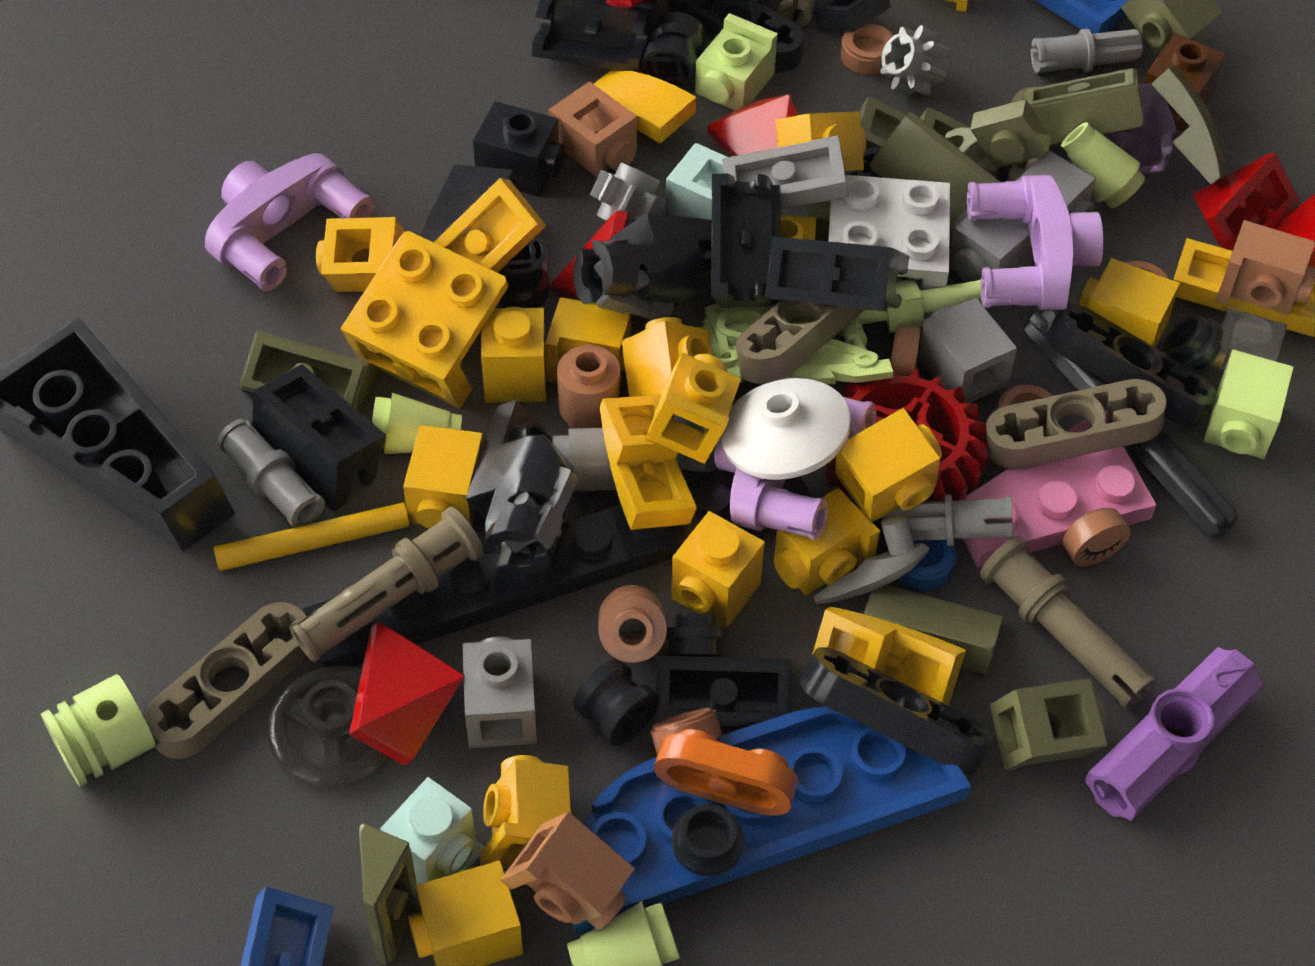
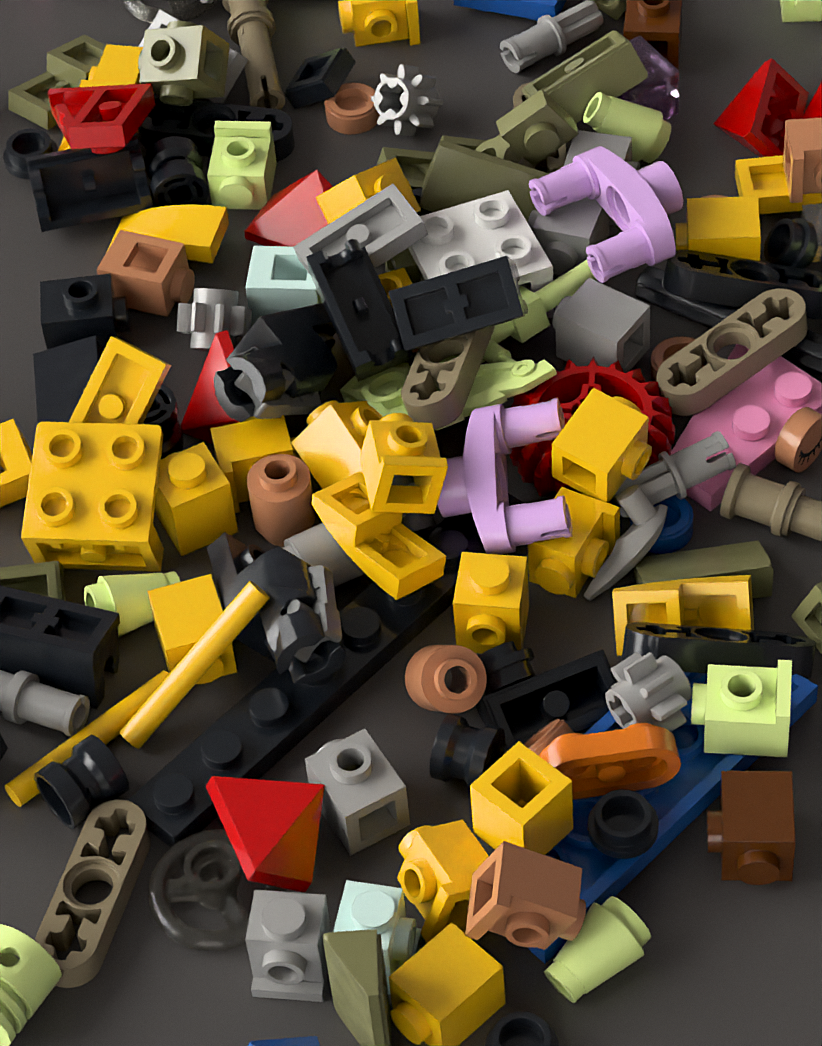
camera: 20 degrees left, 5 degrees down
(273, 573) = (81, 781): none -> black wheel
(348, 796) = (288, 945): none -> light grey brick
(413, 567) = (218, 714): dark tan pin -> none
(422, 510) = (194, 664): none -> yellow bar
(617, 781) = (522, 802): none -> yellow brick
(786, 428) = (498, 449): white dish -> none
(798, 725) = (648, 692): none -> light grey gear
(833, 897) = (754, 827): none -> reddish brown brick
(881, 780) = (744, 709): none -> yellowish green brick
(905, 349) = (546, 345): nougat tile -> none
(1201, 140) = (699, 70): olive slope -> none

